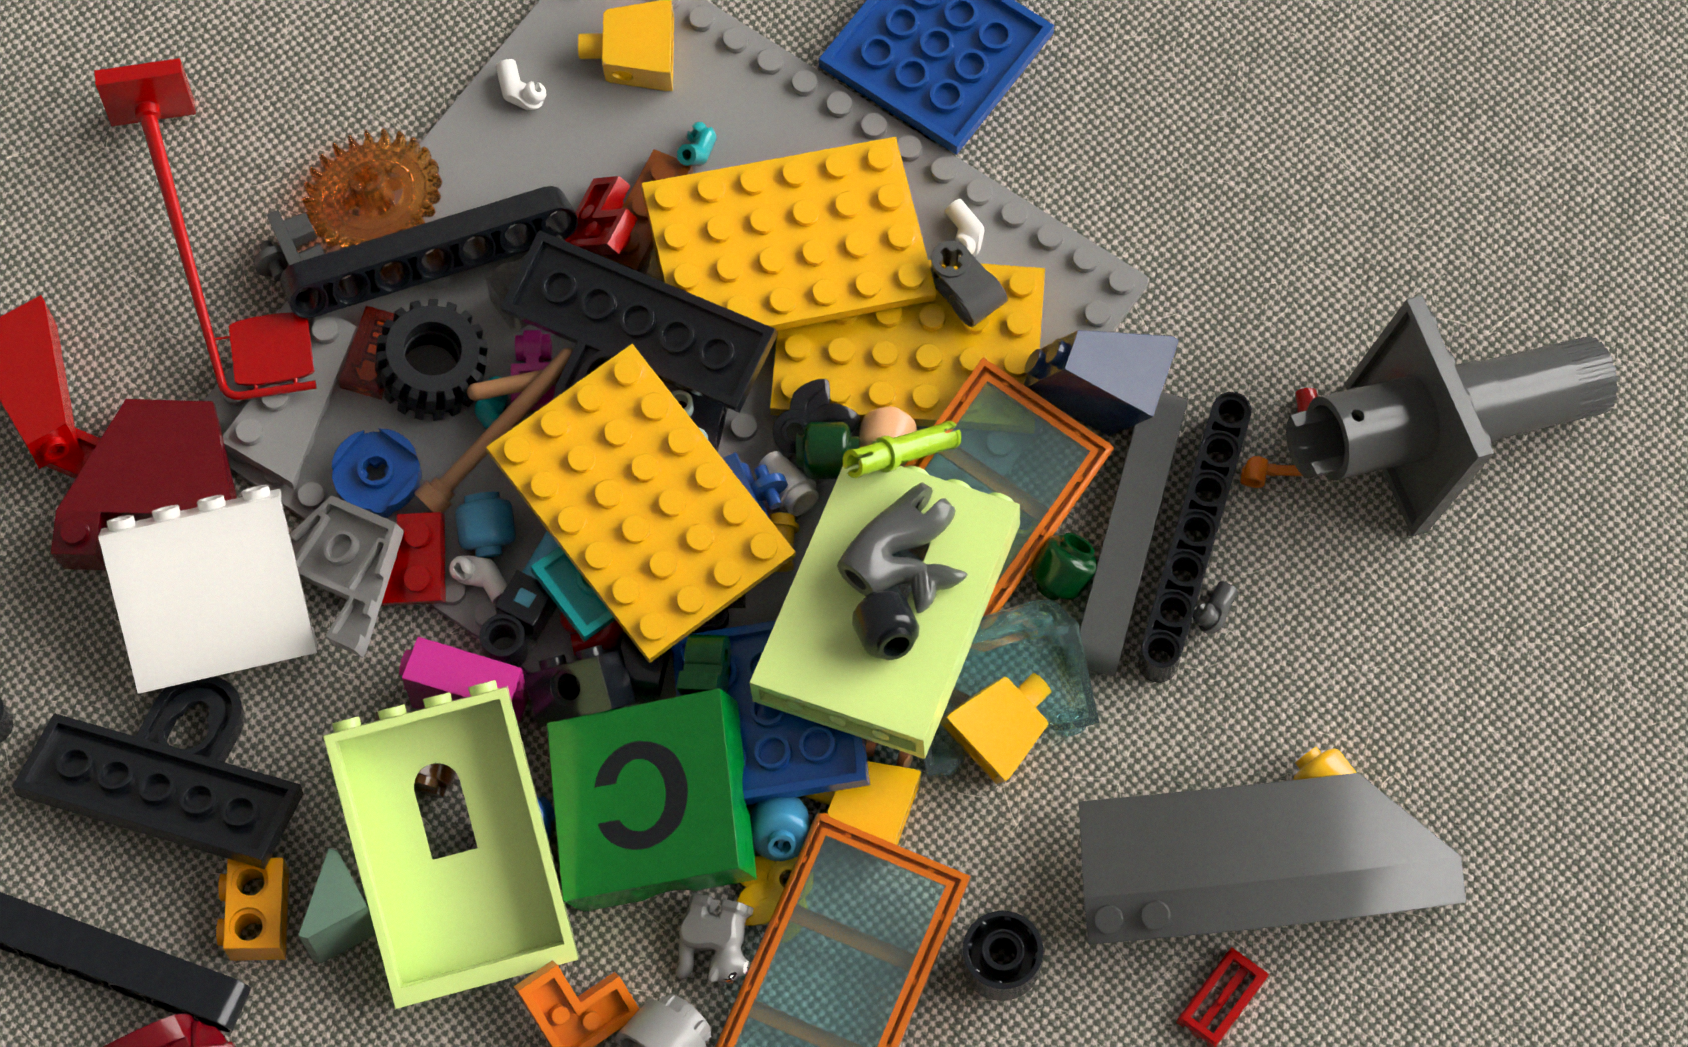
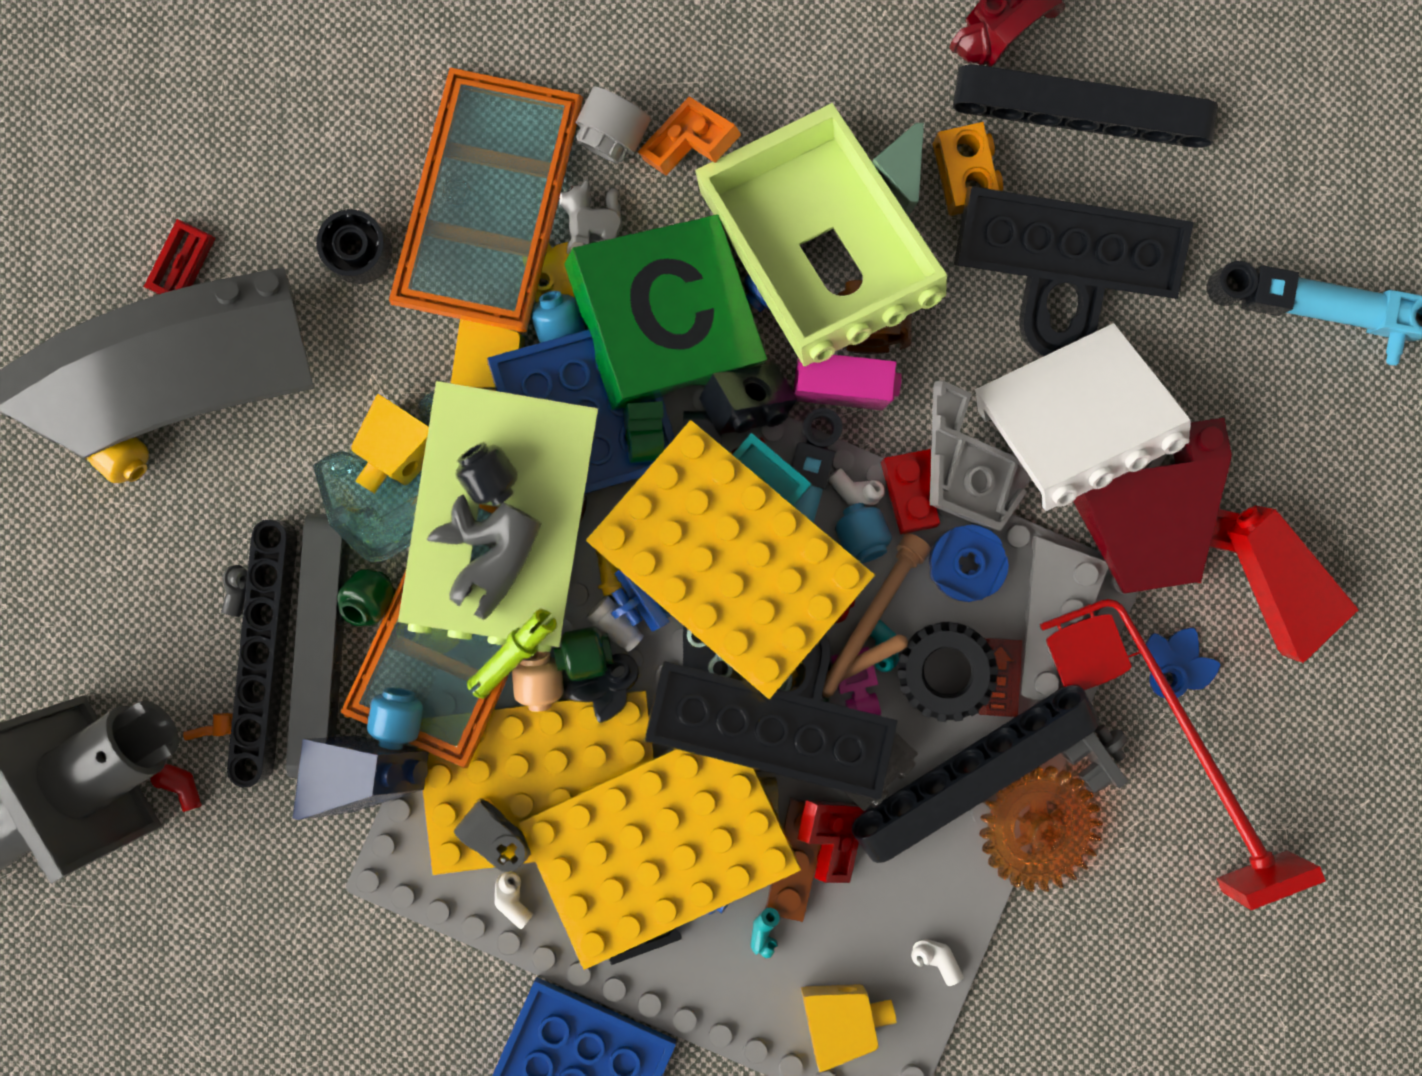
camera: 165 degrees right, 20 degrees up
(166, 332) = (1181, 659): none -> blue plate
(1046, 418) = (395, 717): none -> dark azure head

